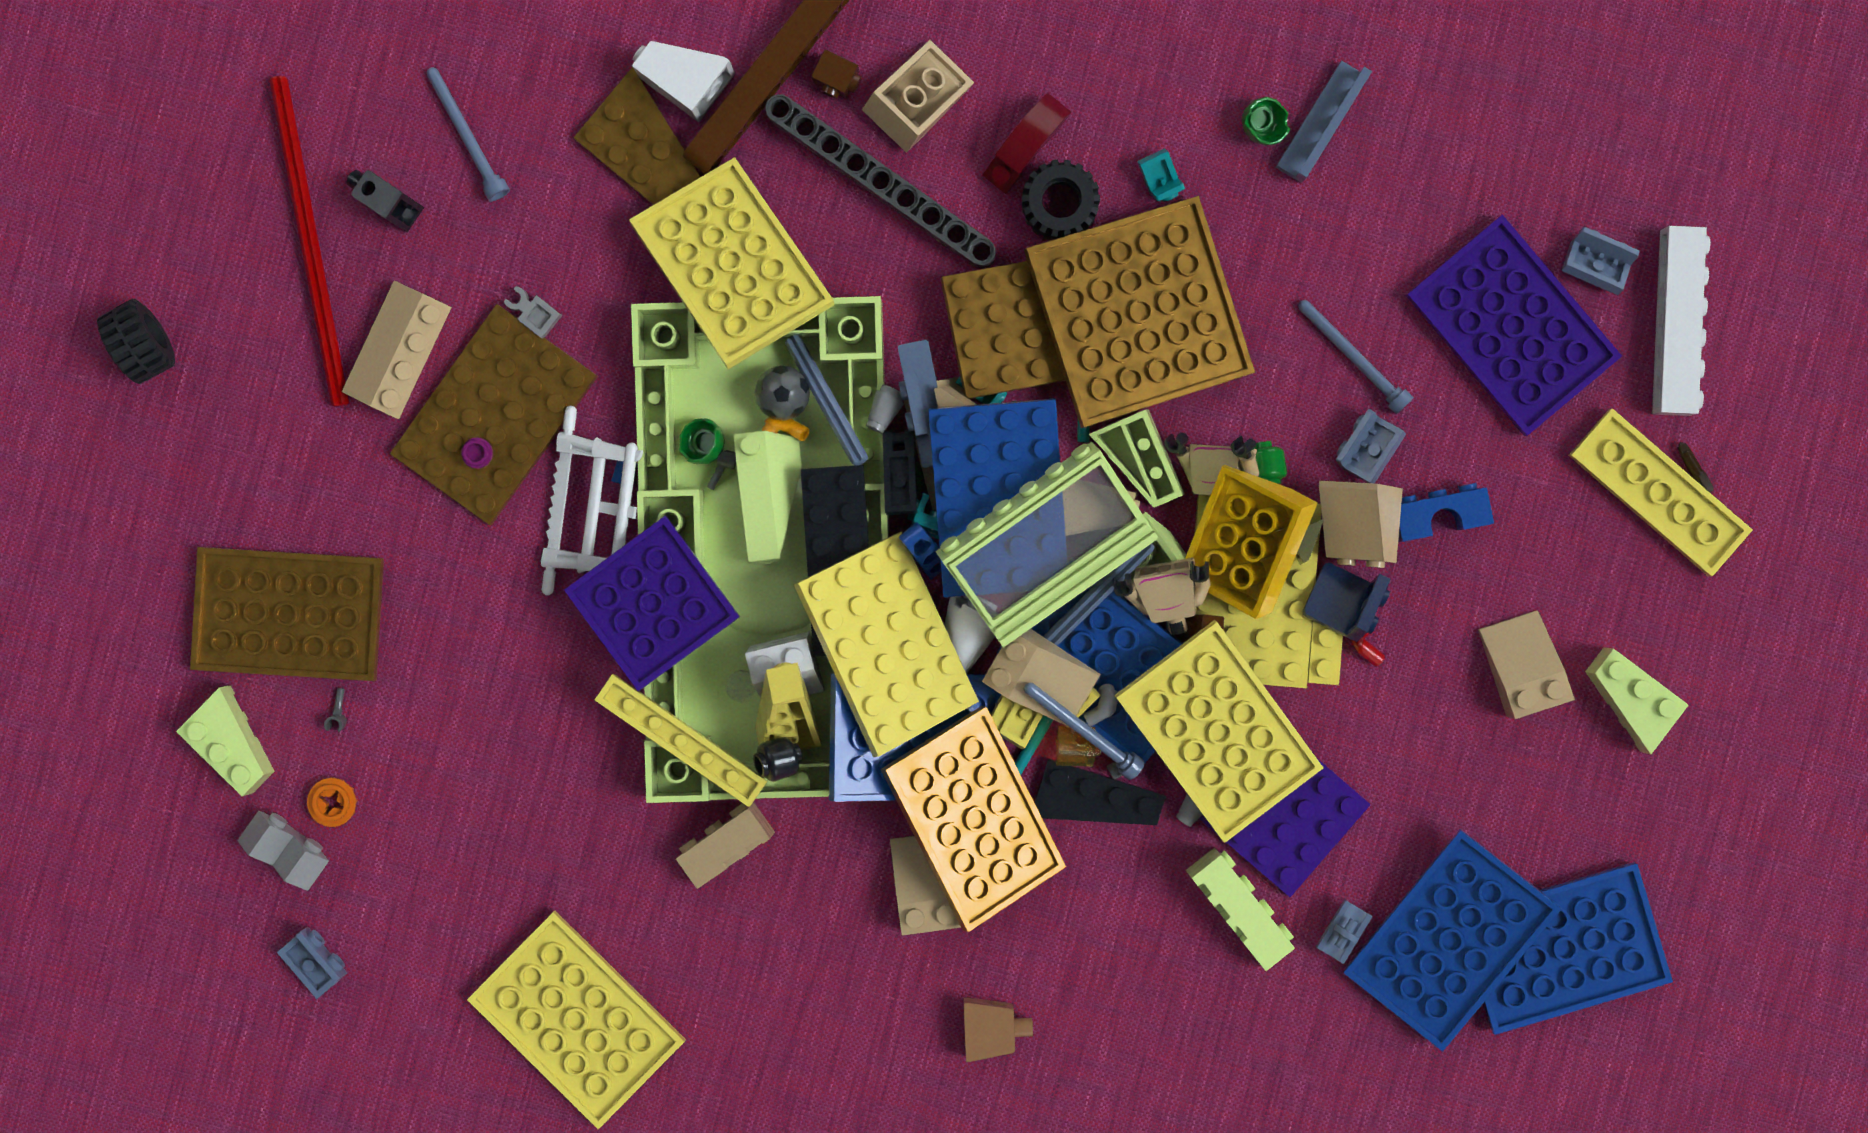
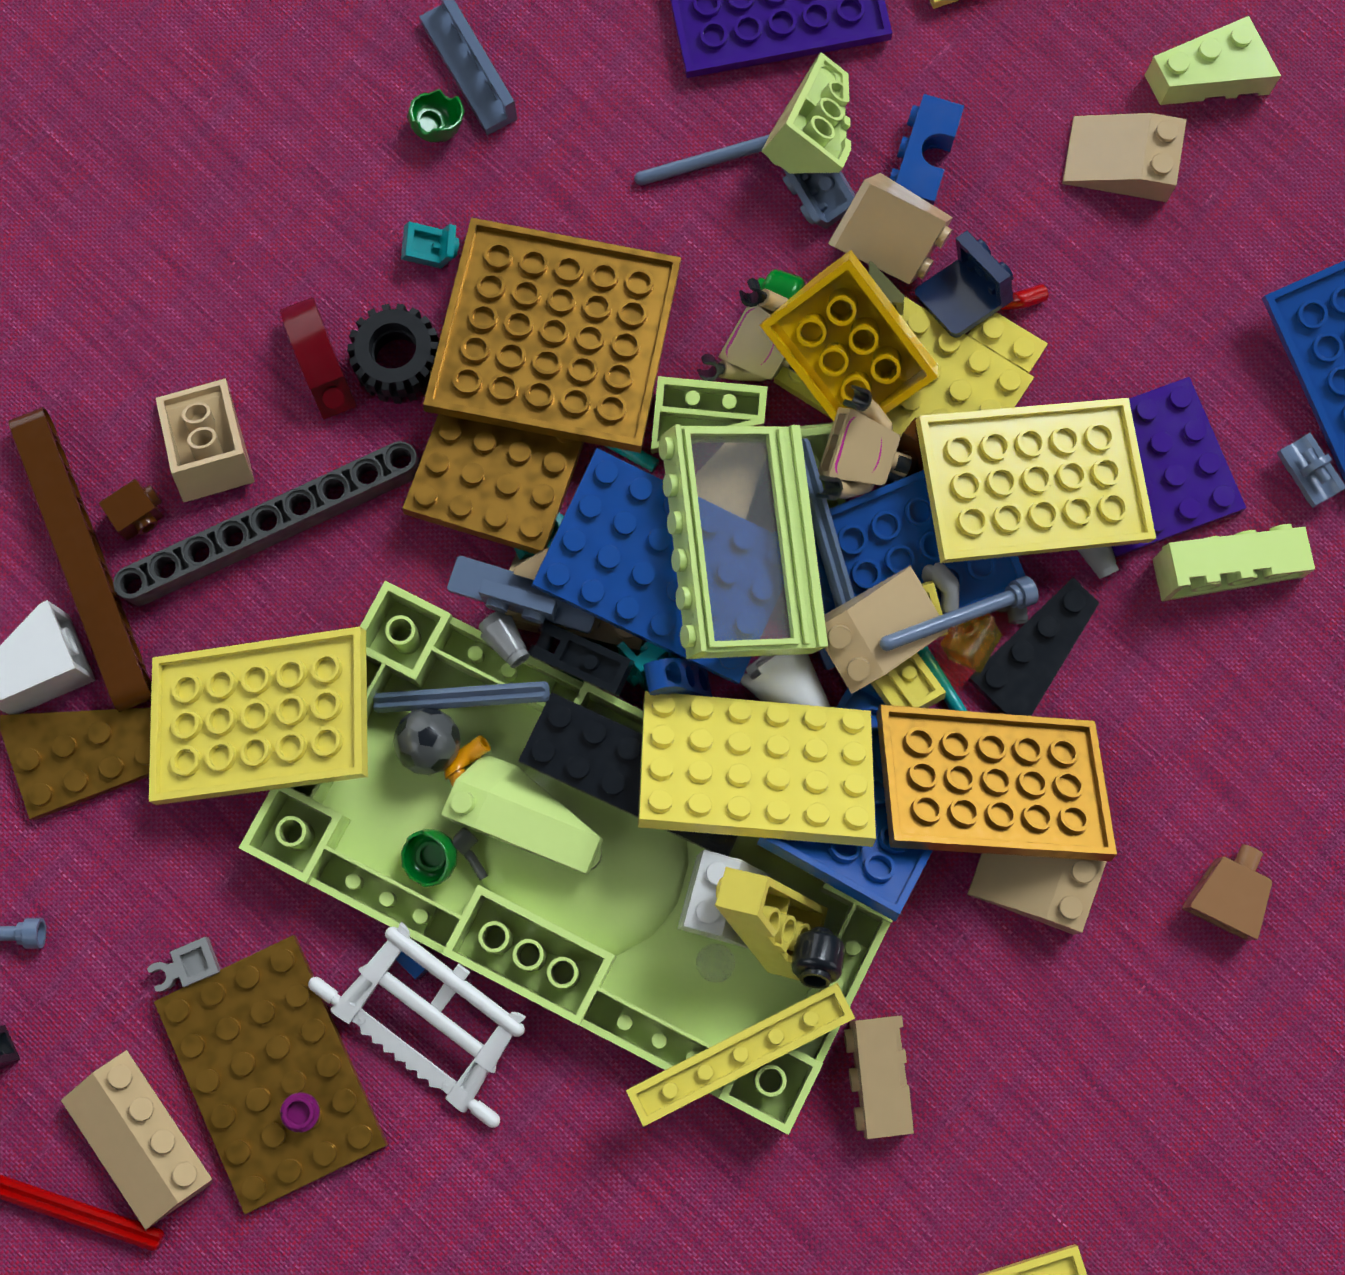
camera: 55 degrees left, 10 degrees down
(652, 603) = (572, 1003): dark purple plate -> none
(1414, 416) = (814, 124): none -> yellowish green wedge

